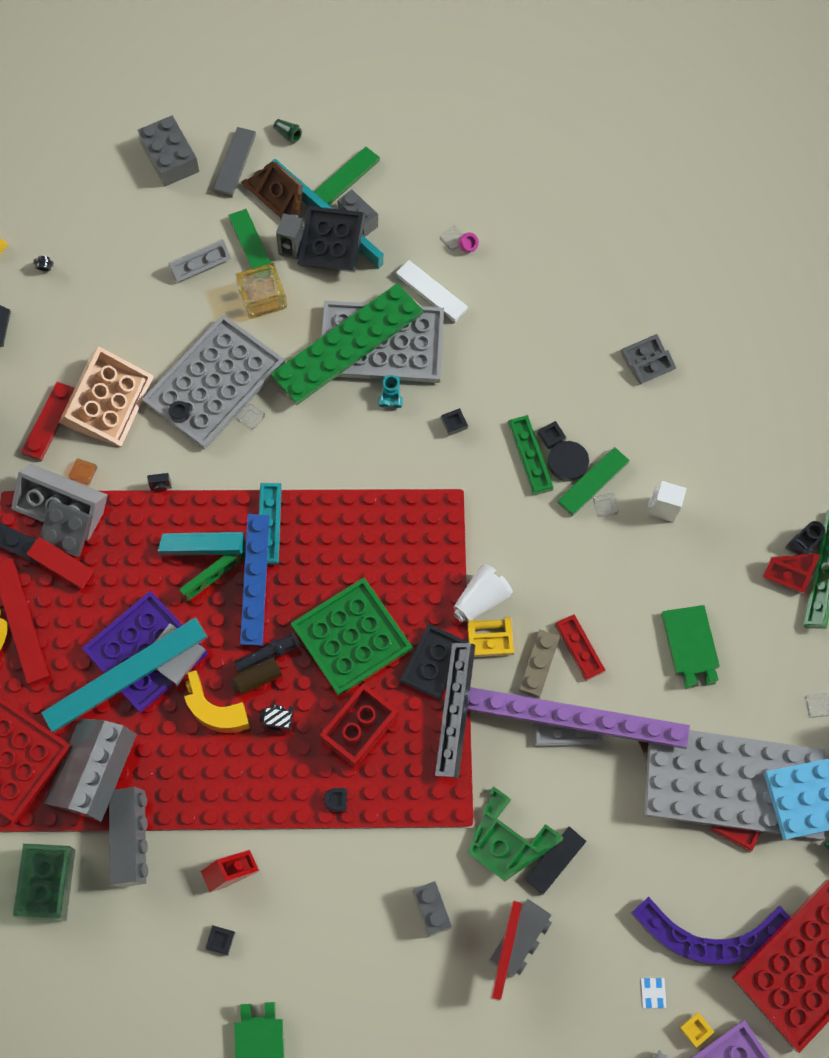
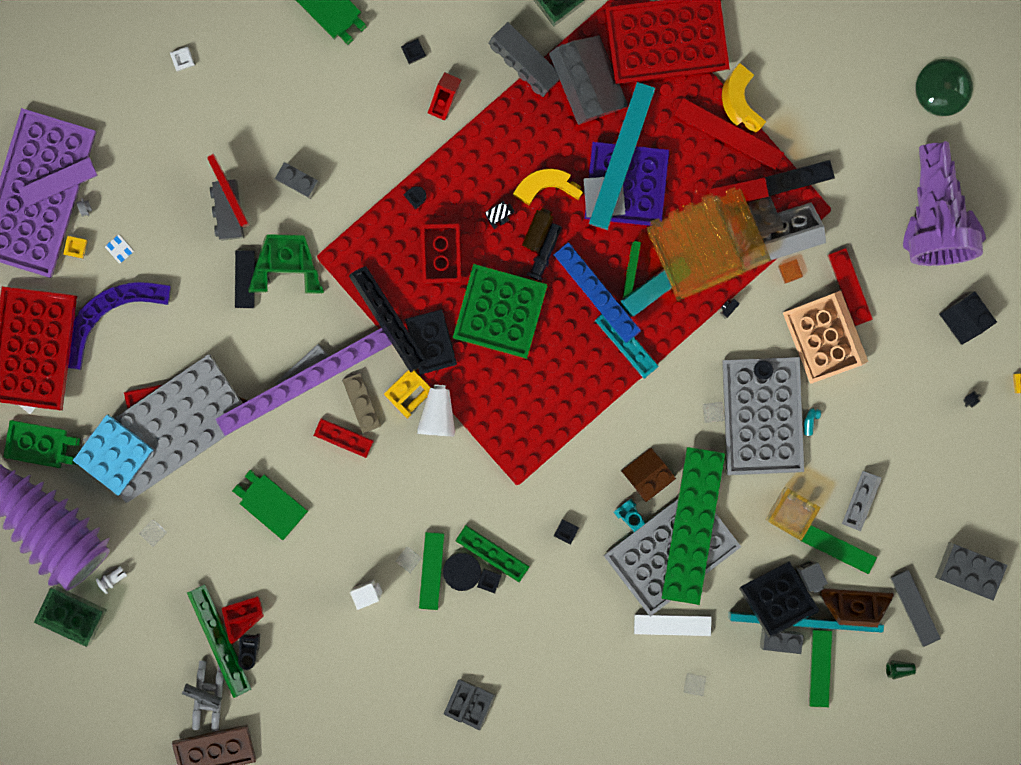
camera: 145 degrees right, 20 degrees up
(123, 526) = (708, 243): none -> clear yellow container
(175, 351) = (809, 421): none -> teal arm
(347, 409) = (648, 475): none -> reddish brown slope
(468, 242) = (679, 689): dark pink tile -> none

